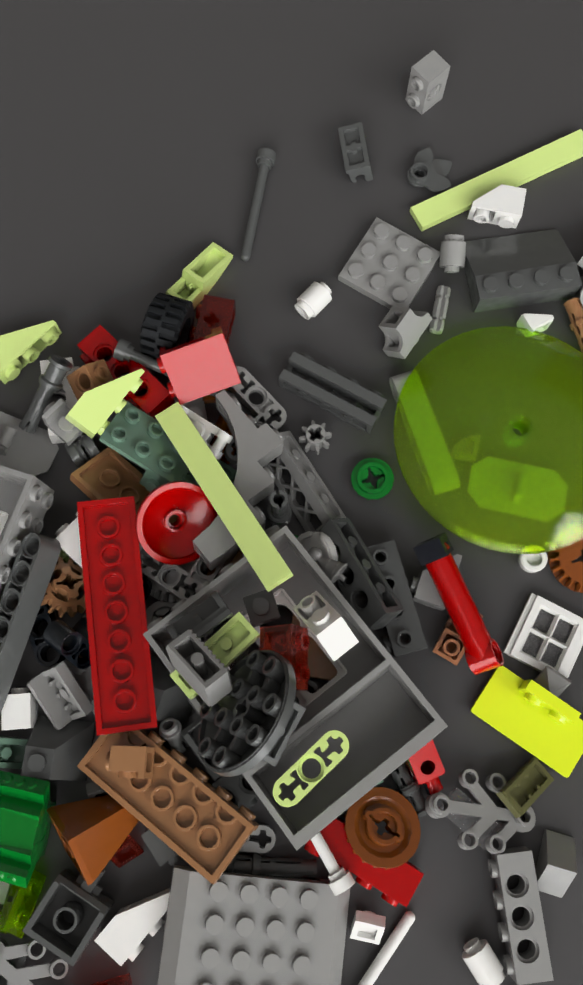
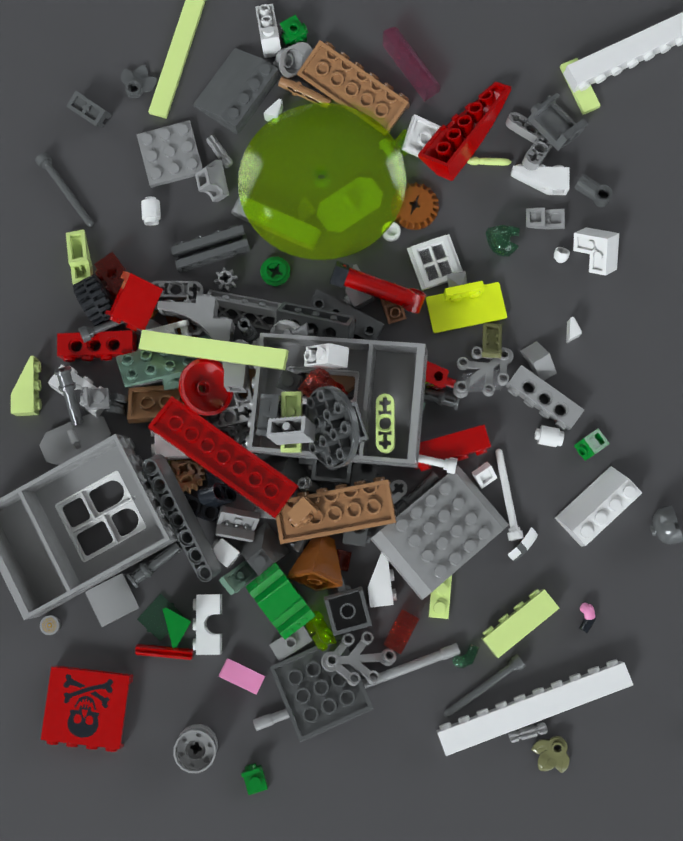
camera: 40 degrees left, 5 degrees up
(89, 377) = (84, 365): medium nougat brick -> none
(98, 404) = (105, 375): yellowish green slope -> none
(401, 821) = (456, 417): dark orange gear -> none
(427, 82) = (87, 34): light grey brick -> none
(452, 253) = (196, 115): light grey brick -> none
(499, 206) = (194, 65): white slope -> none

